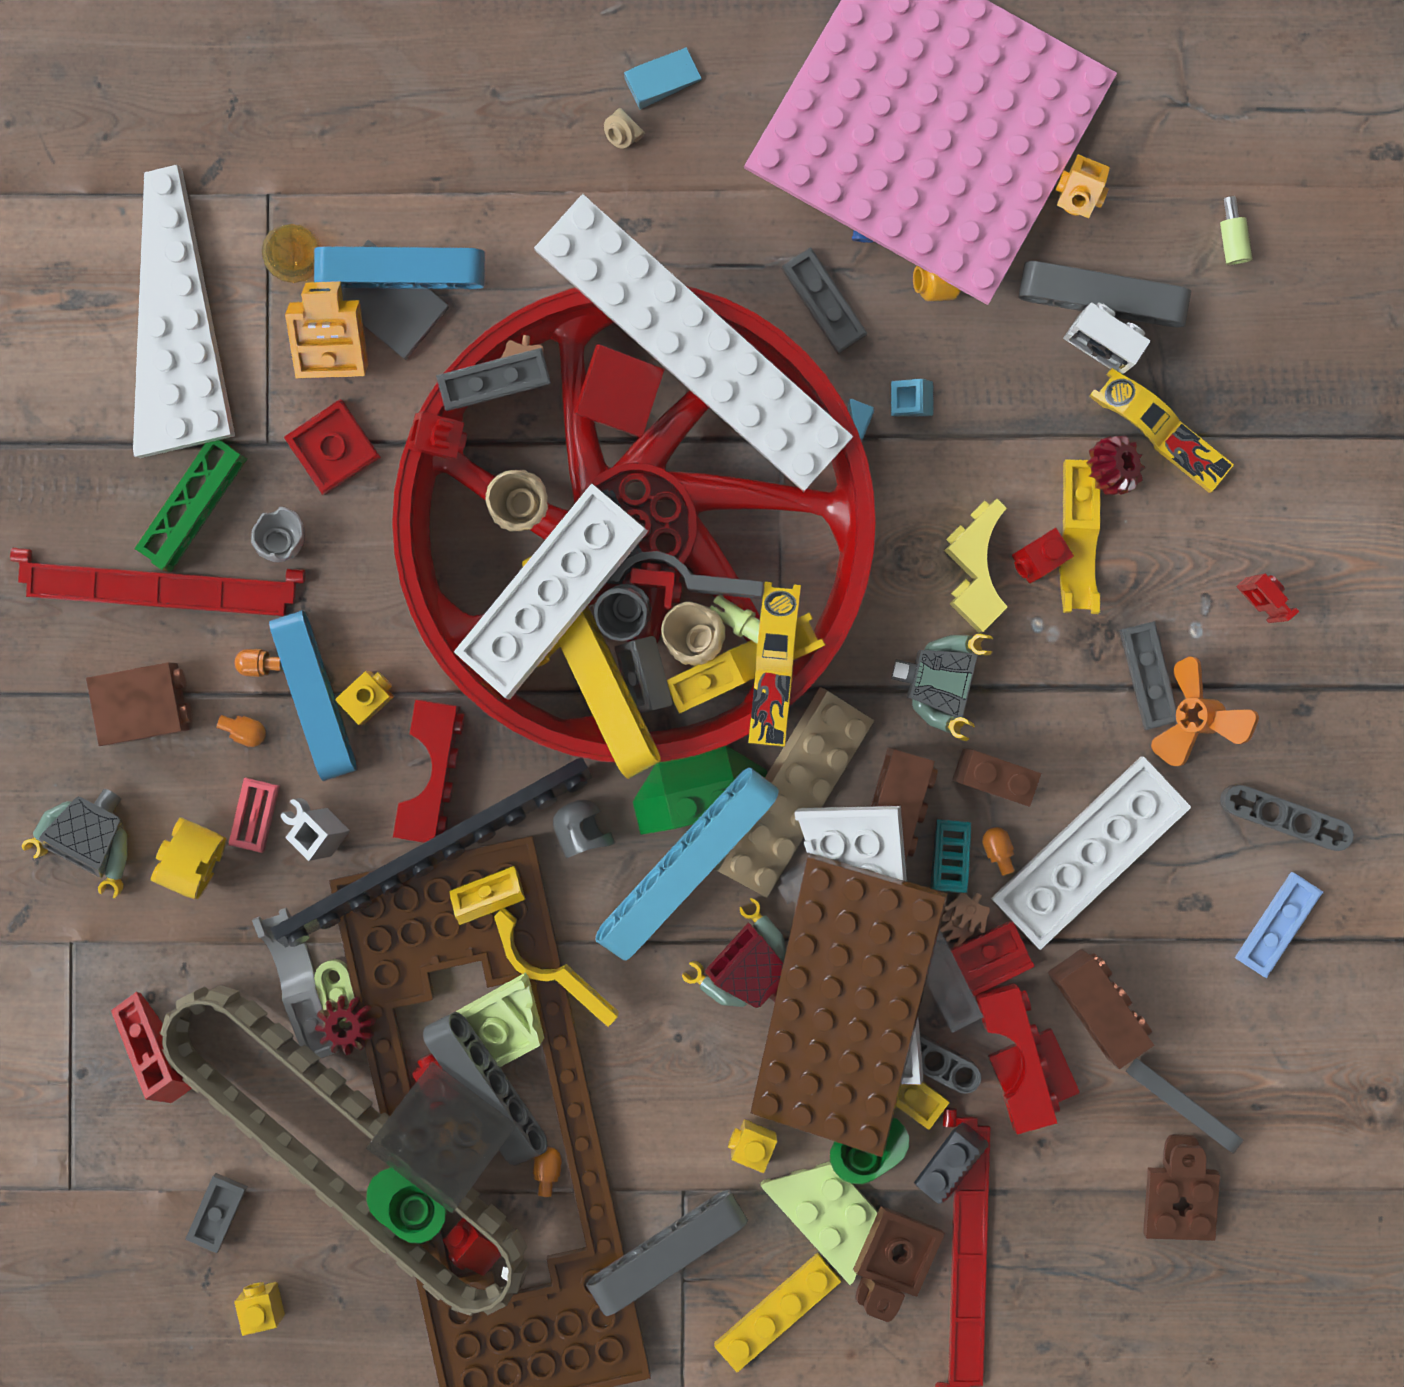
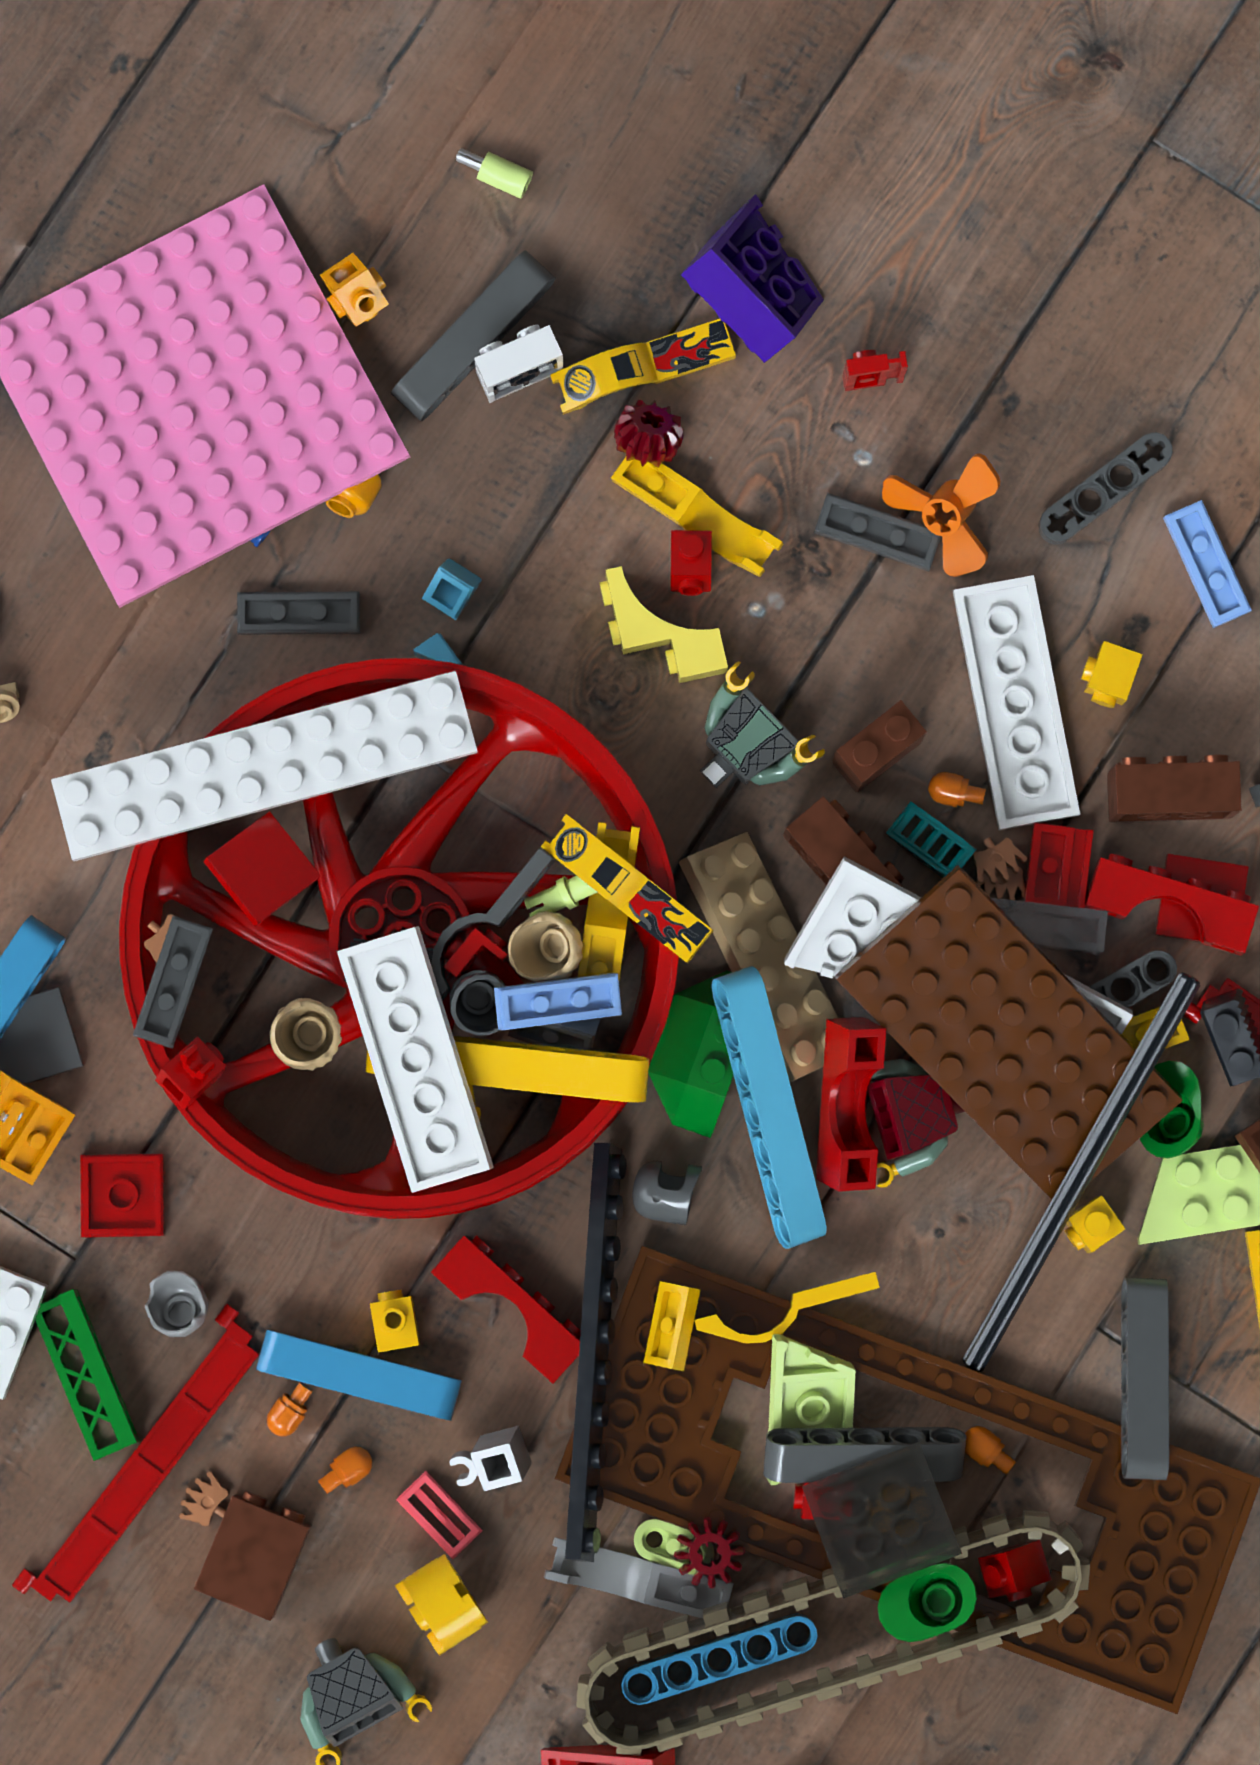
camera: 60 degrees left, 5 degrees down
(157, 644) = (205, 1503): none -> nougat piece
(261, 1074) = (697, 1656): none -> dark azure beam
(659, 667) = (557, 1001): none -> light blue tile
(692, 937) = (845, 1147): none -> red arch
(787, 1117) = (1081, 1171): none -> black axle
(1155, 908) = (1111, 674): none -> yellow brick
(1274, 470) = (754, 282): none -> dark purple wedge

